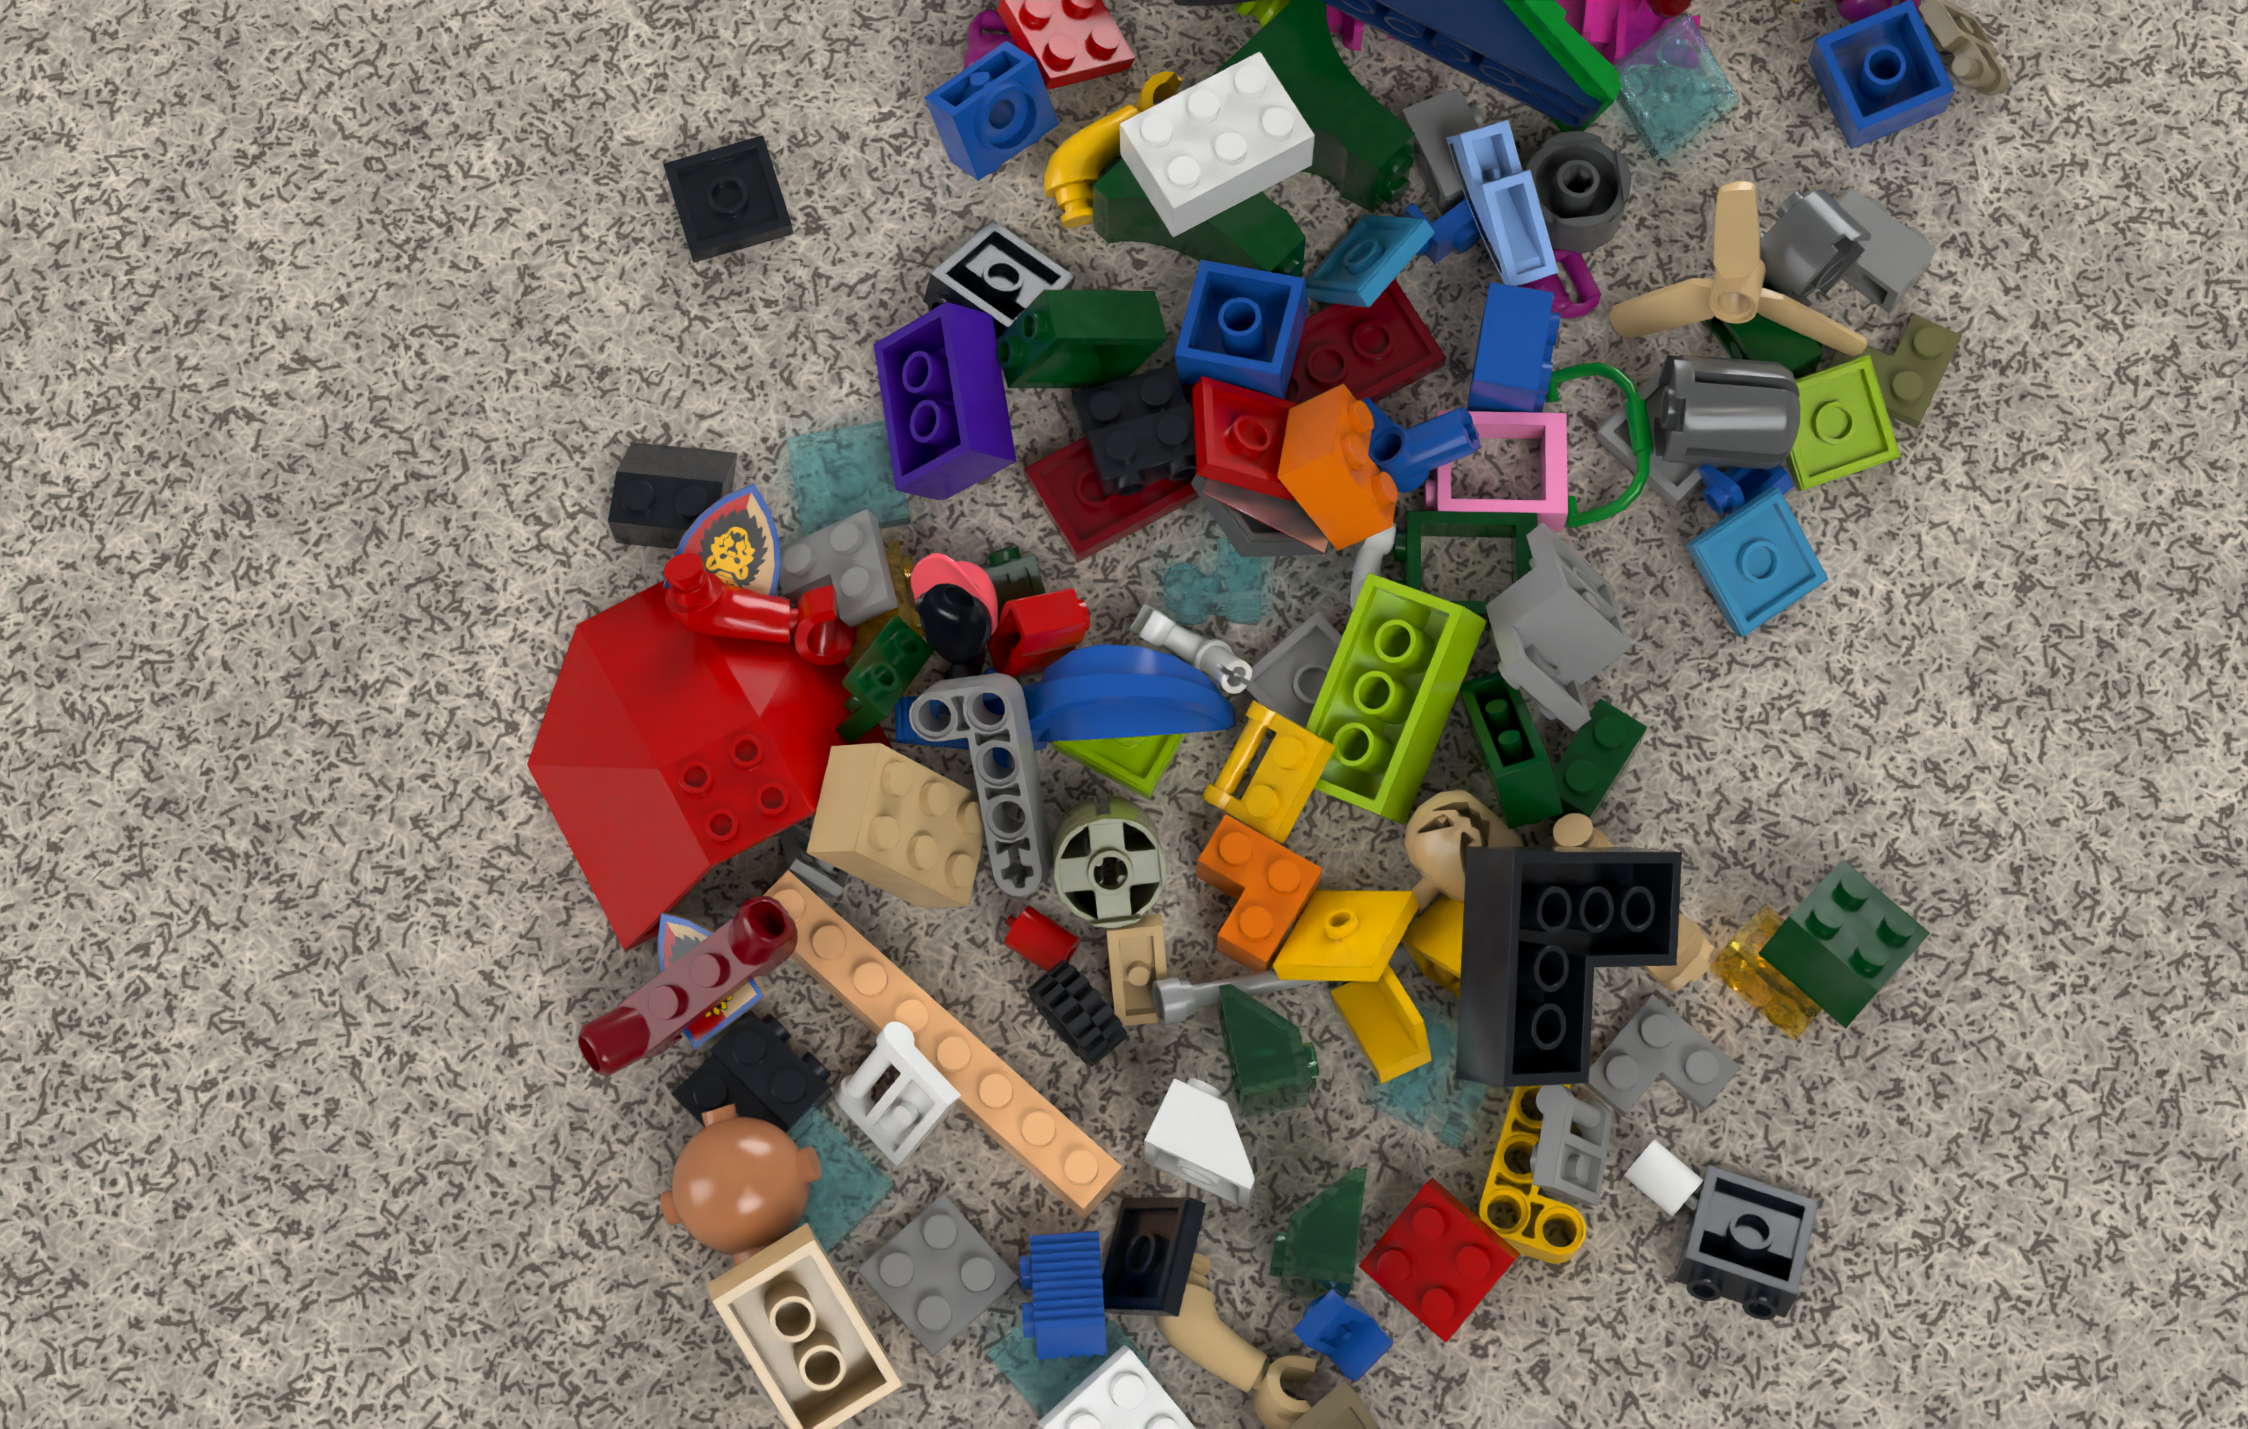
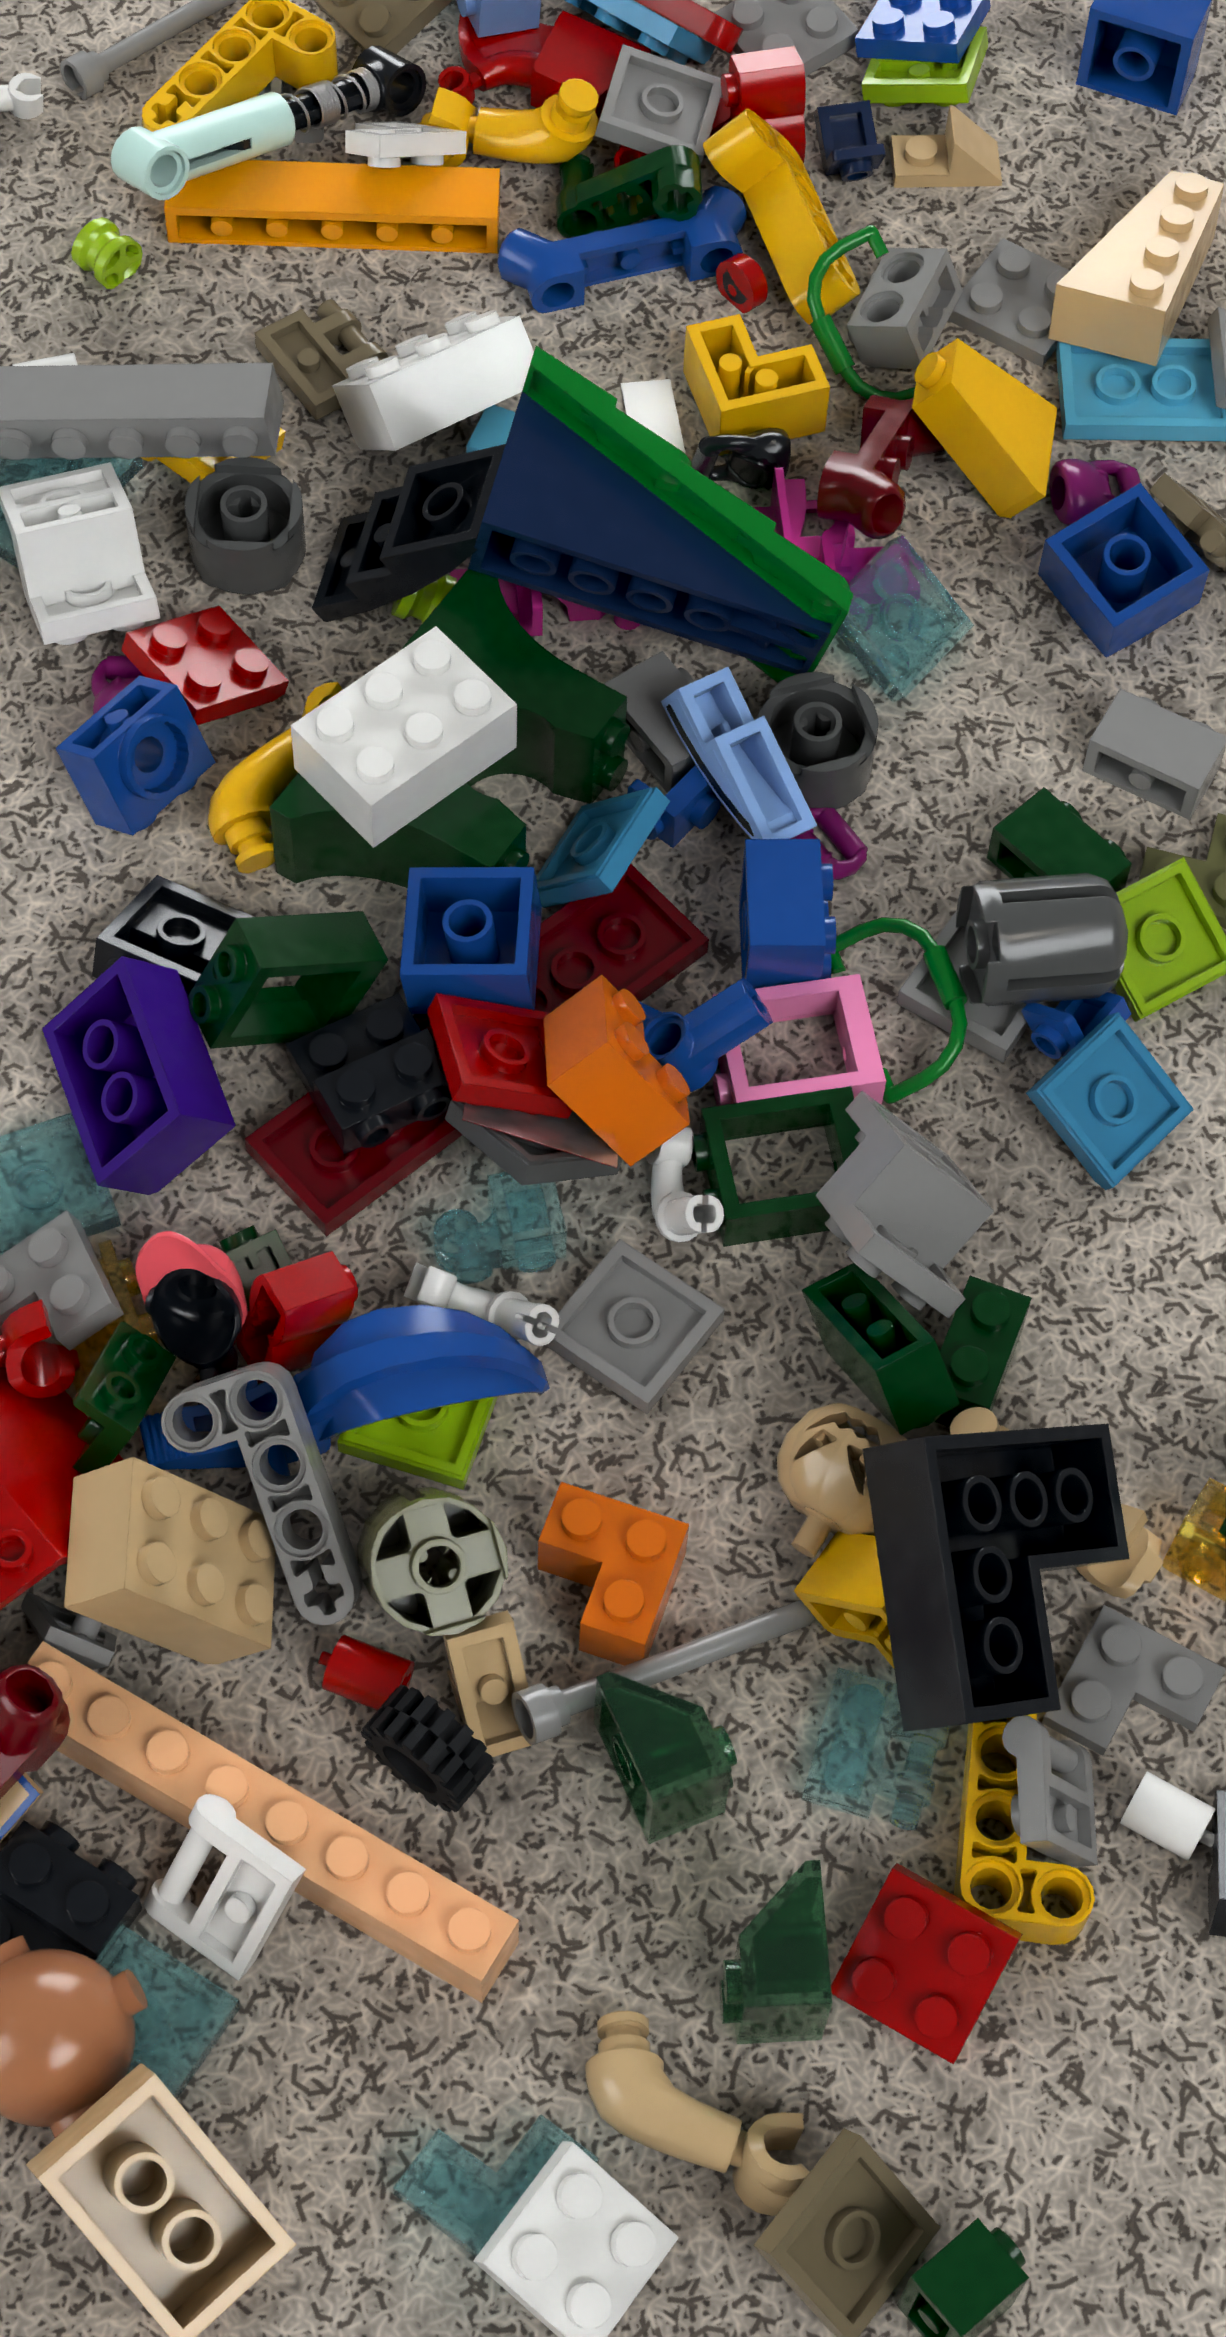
camera: 15 degrees left, 10 degrees down
(938, 1275) = (313, 2104): light grey plate -> none
(1067, 1295) = (481, 2093): blue brick -> none
(1151, 1255) = (574, 2025): black plate -> none
(1200, 1142) = (610, 1875): white slope -> none
(1282, 778) = (619, 1431): yellow plate -> none
(1344, 1333) = (829, 2075): blue bracket -> none
(1346, 935) = (733, 1598): yellow plate -> none
(1384, 1025) = (797, 1687): yellow panel -> none
(1391, 694) = (723, 1318): lime slope -> none
(1736, 289) = (1021, 805): tan piece -> none
(1810, 245) = (1088, 752): dark grey brick -> none

